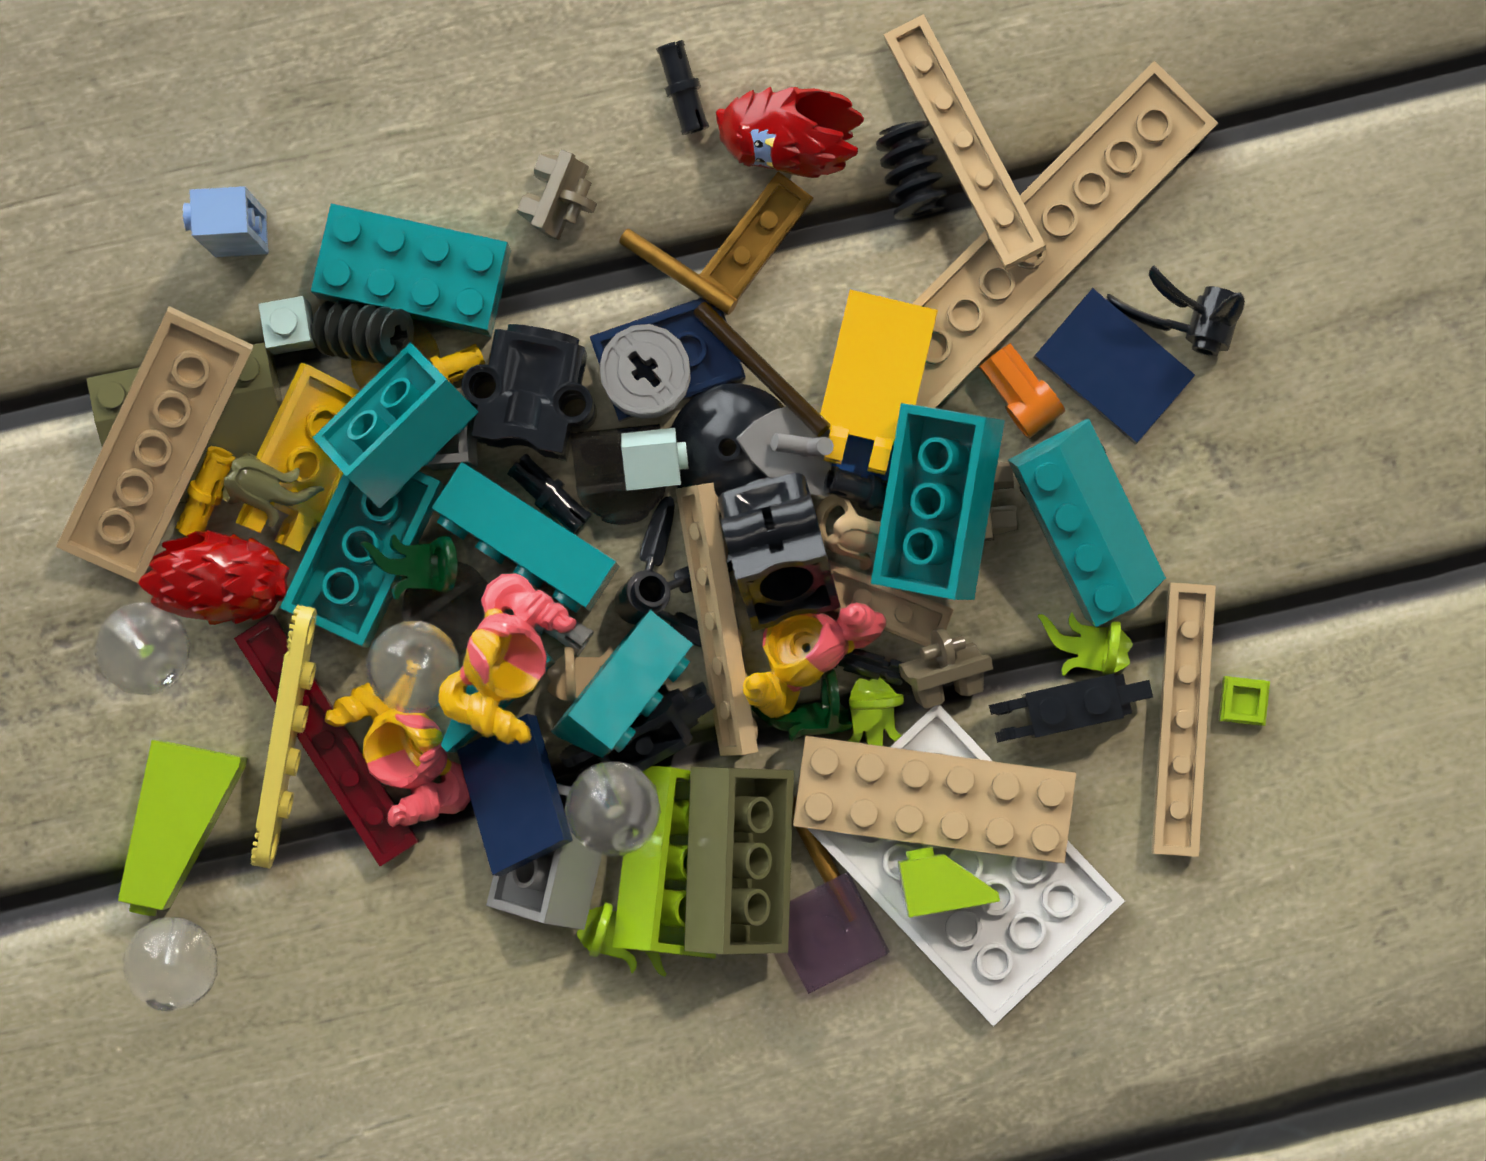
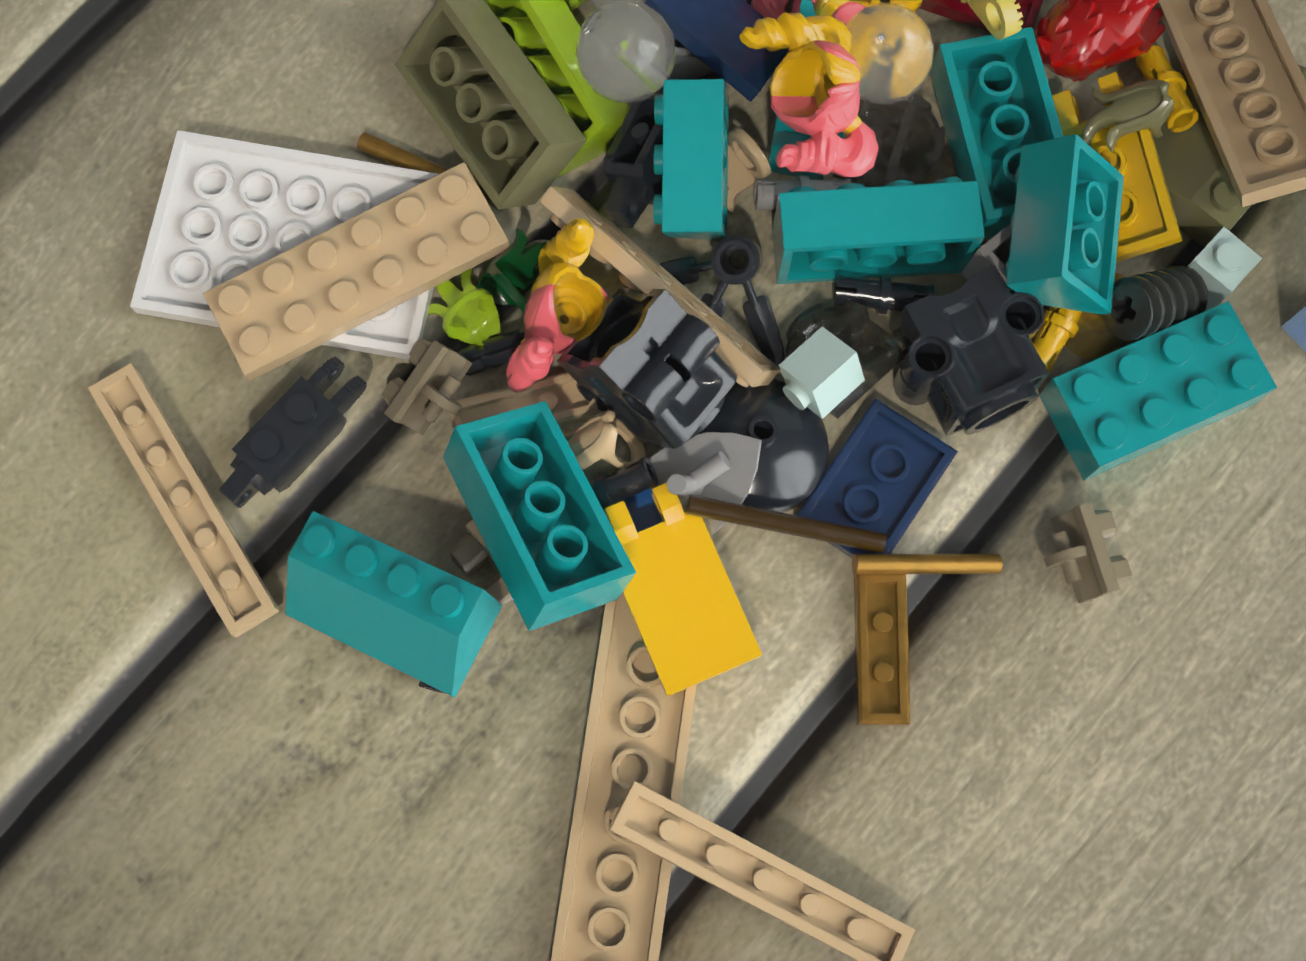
camera: 140 degrees right, 10 degrees down
(423, 565) = (944, 138): dark green piece -> none
(651, 346) = (914, 446): light grey piece -> none
(682, 87) = (1057, 736): black pin -> none
(790, 130) = (929, 764): red head -> none
(832, 933) = (371, 113): tile -> none
(910, 170) = (791, 815): black piece -> none
(939, 884) = (297, 200): lime slope -> none
(1028, 400) = (525, 681): orange piece -> none
(1096, 648) = (294, 505): lime piece -> none
(1114, 366) = (467, 774): dark blue tile -> none
(1212, 317) = (401, 882): black plant -> none
(1244, 701) = (139, 556): lime tile -> none

